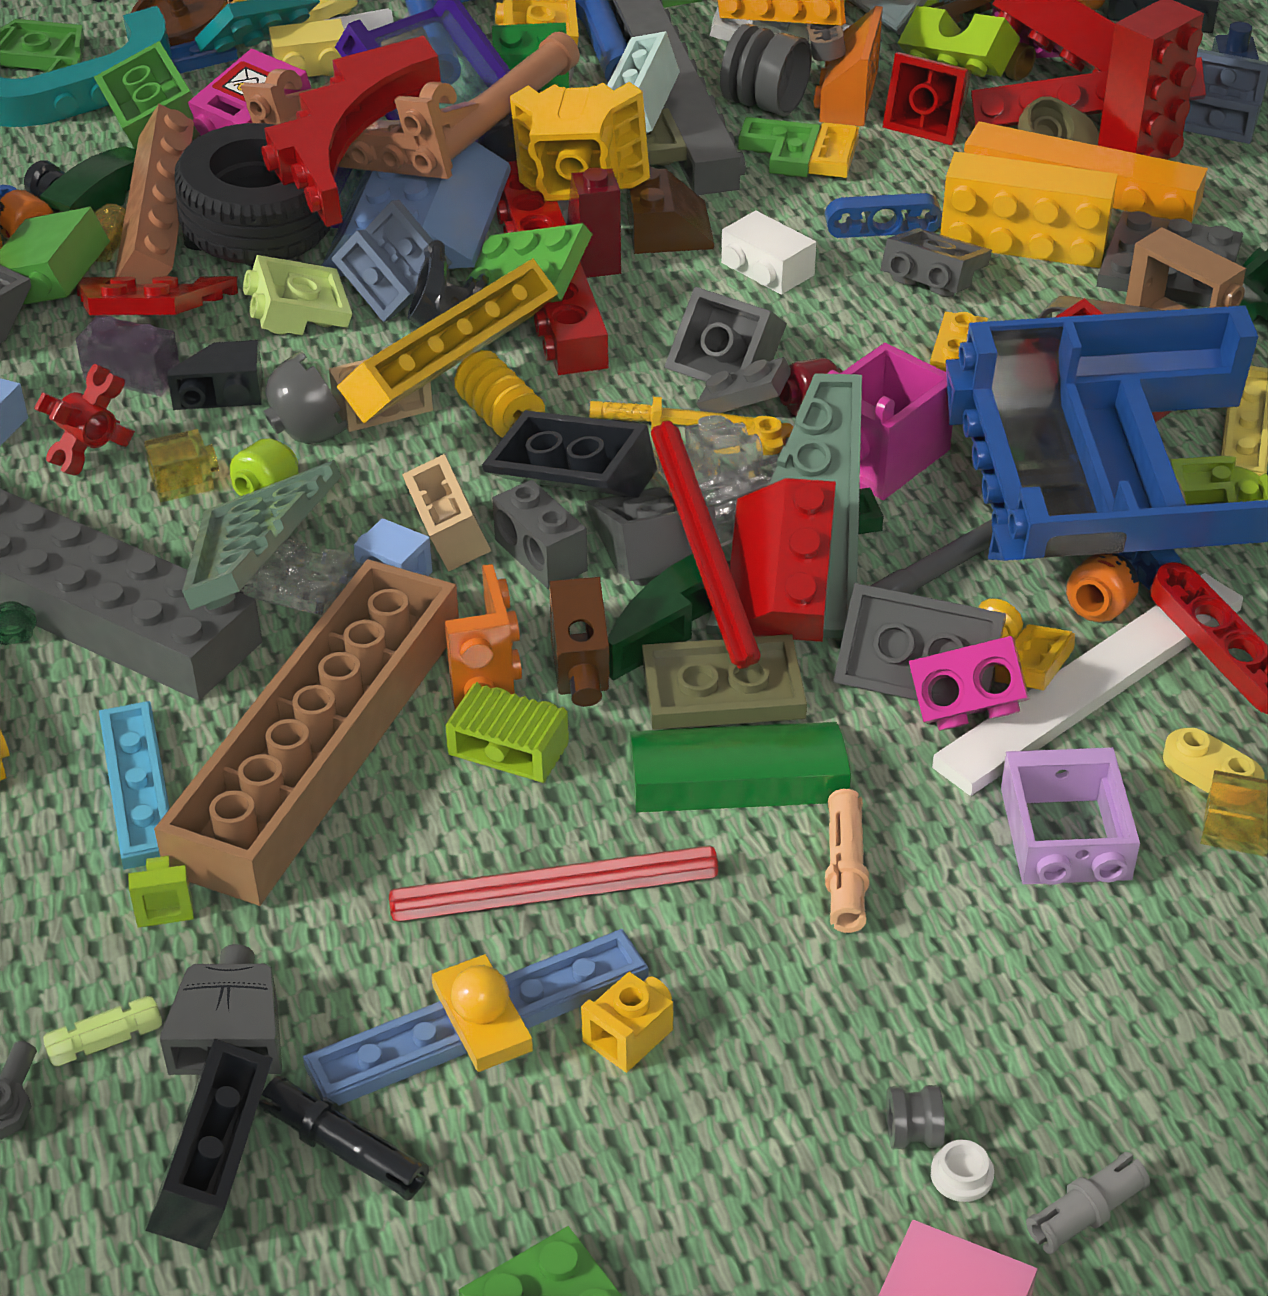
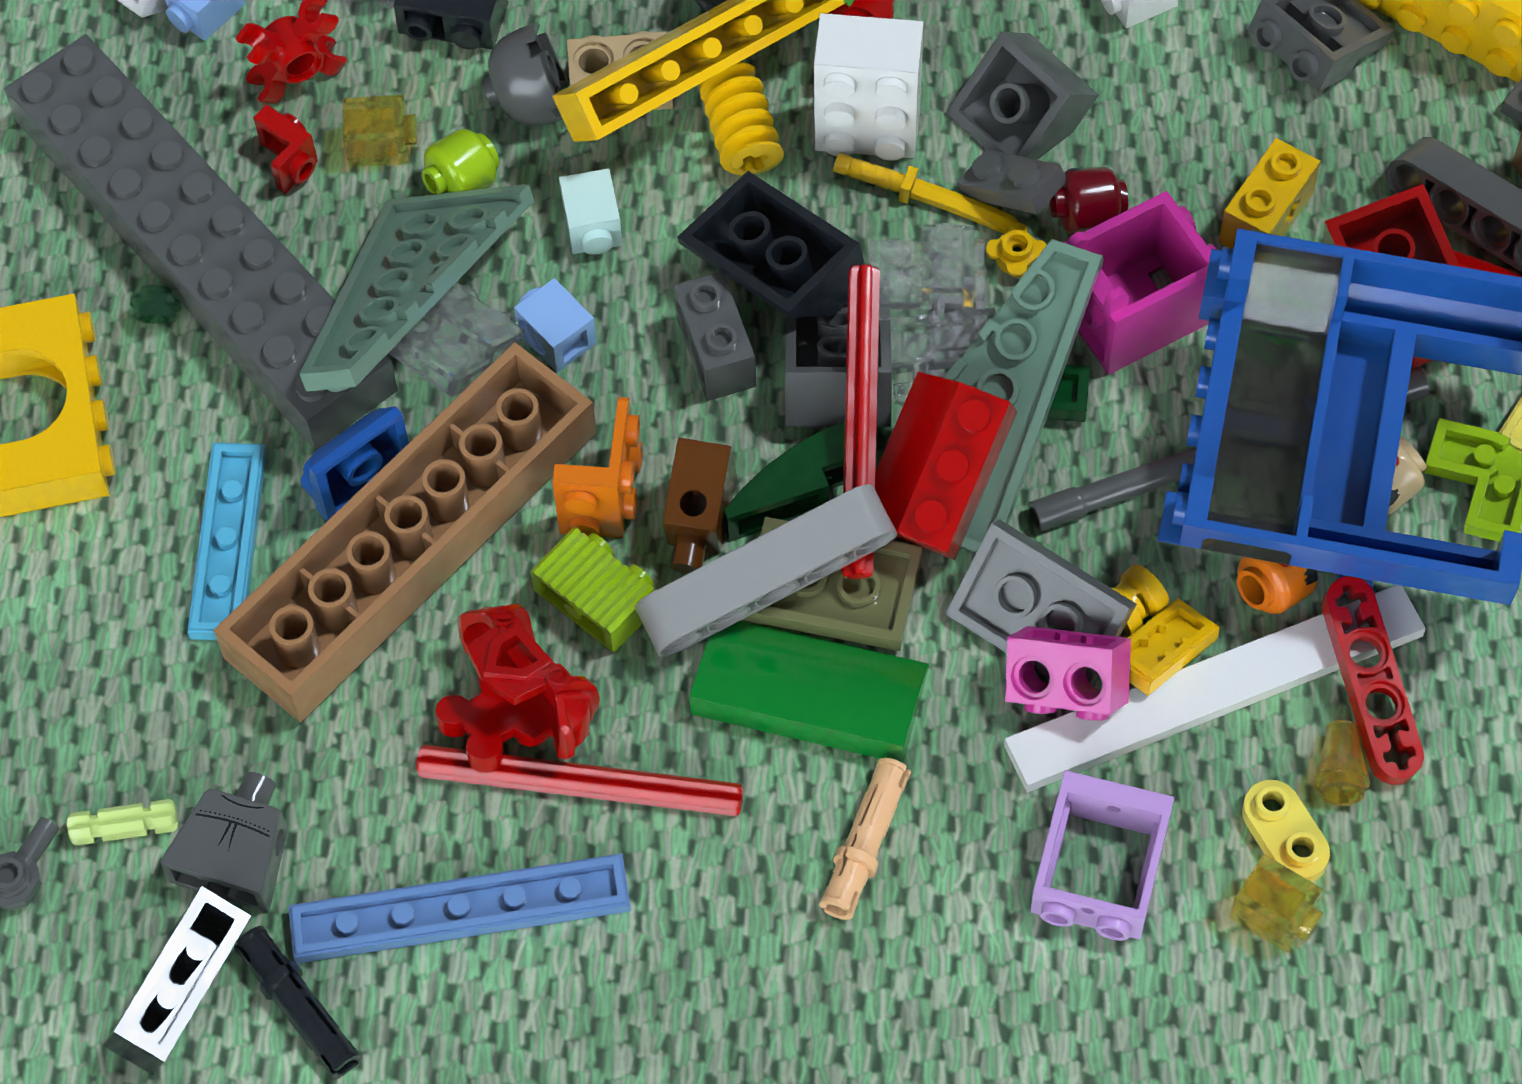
camera: 20 degrees right, 20 degrees up
(100, 489) = (290, 143): none -> red bracket
(160, 893) = (210, 688): lime tile -> none
(242, 676) = (353, 459): none -> blue slope
(383, 479) = (591, 212): none -> light aqua brick
(446, 512) = (625, 283): tan brick -> none
(454, 794) = (519, 690): none -> red piece
(482, 1012) = (456, 913): yellow tile -> none
(603, 336) = (867, 86): none -> white brick
(628, 1020) = (588, 975): yellow brick -> none
(666, 666) = (765, 570): none -> light grey beam
(1235, 706) = (1342, 766): none -> clear yellow cone

